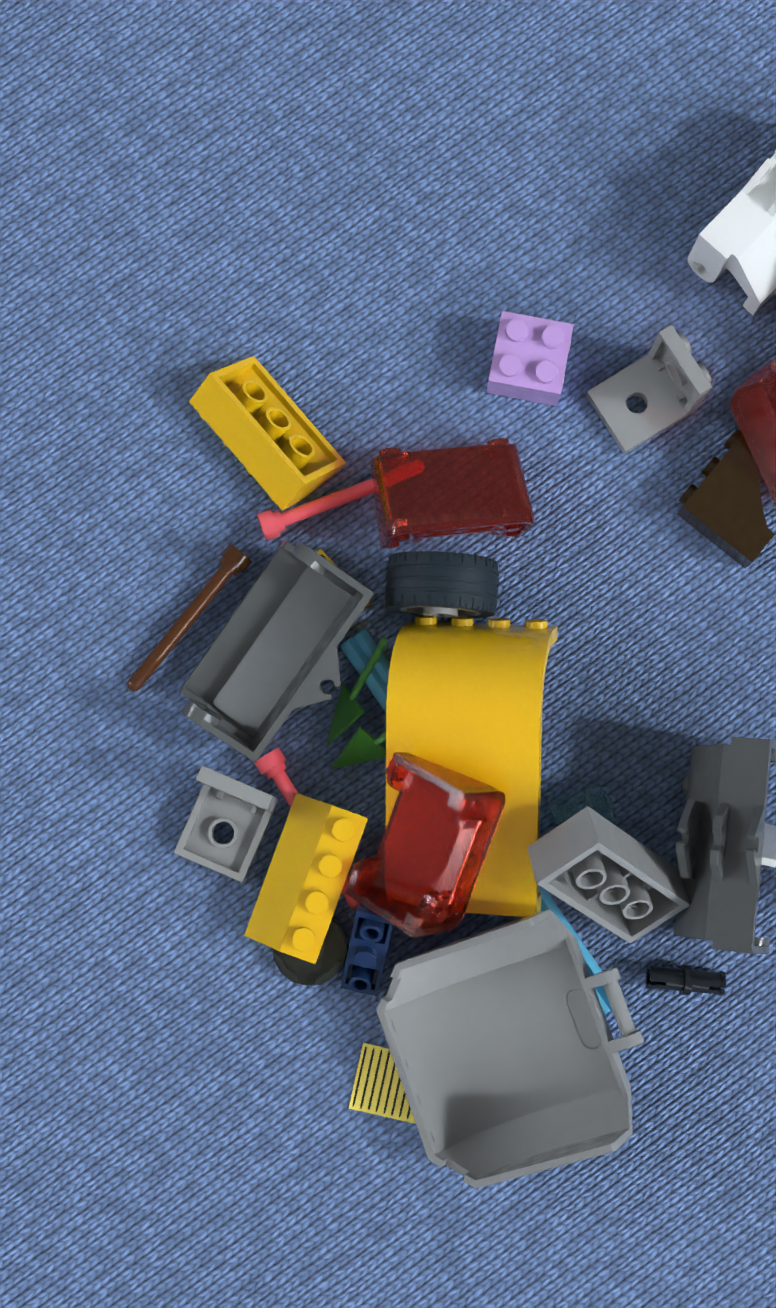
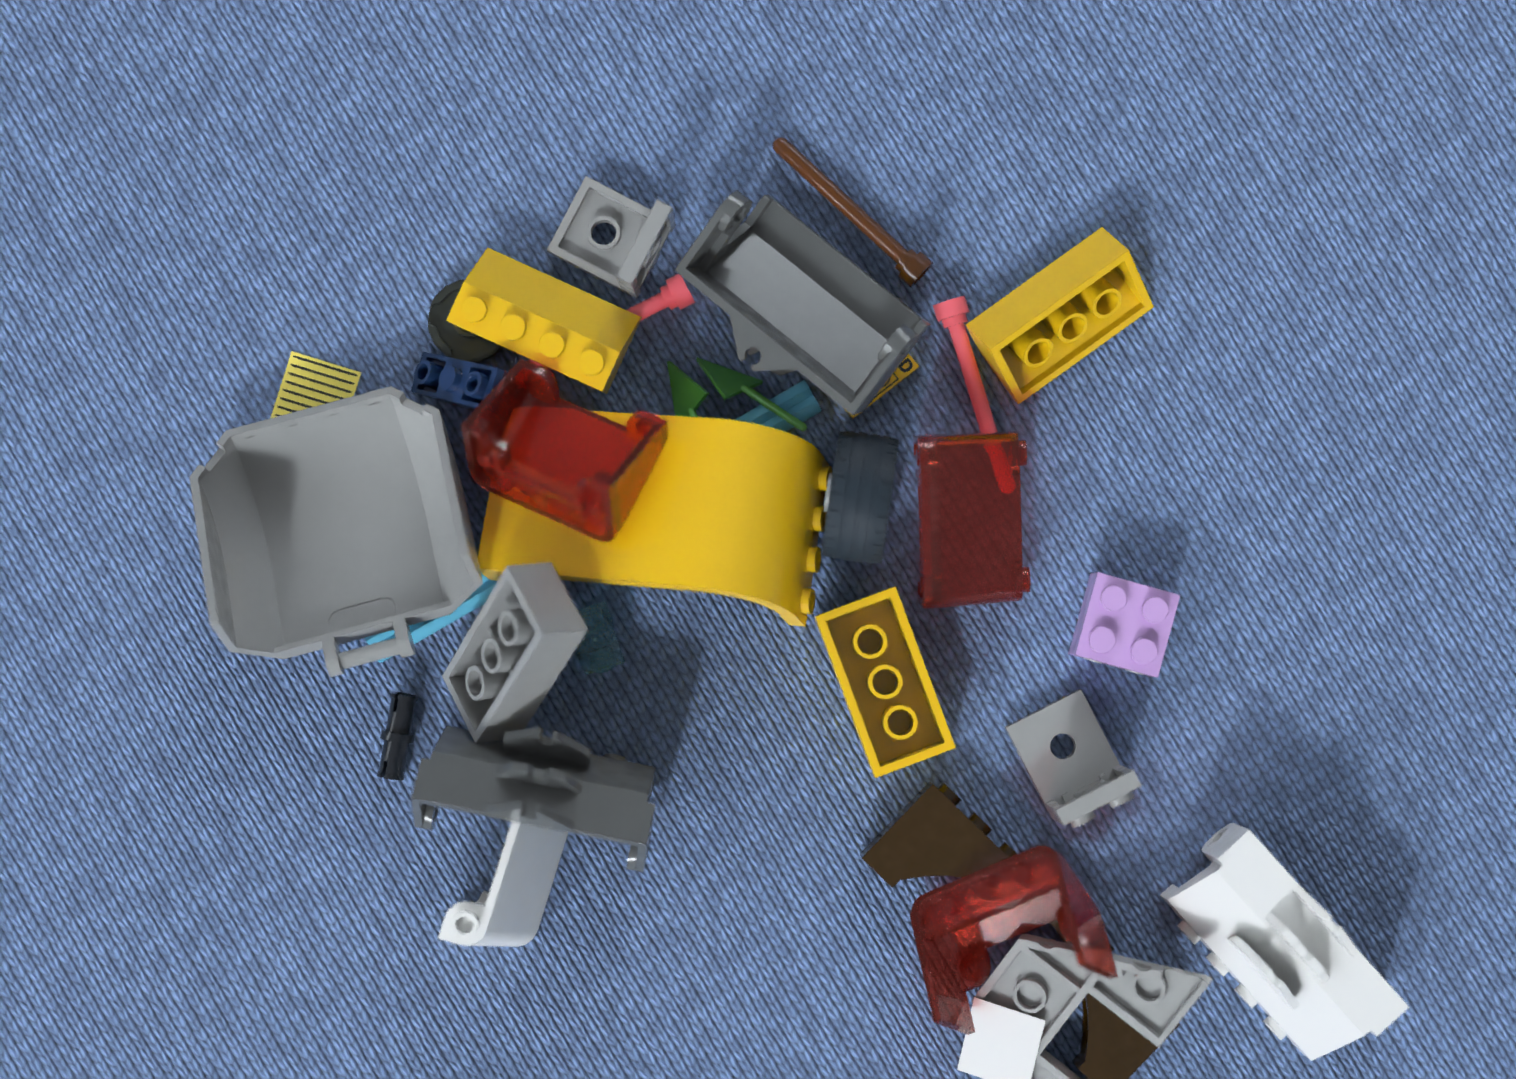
camera: 90 degrees right, 5 degrees up
(598, 555) = (884, 682): none -> yellow brick

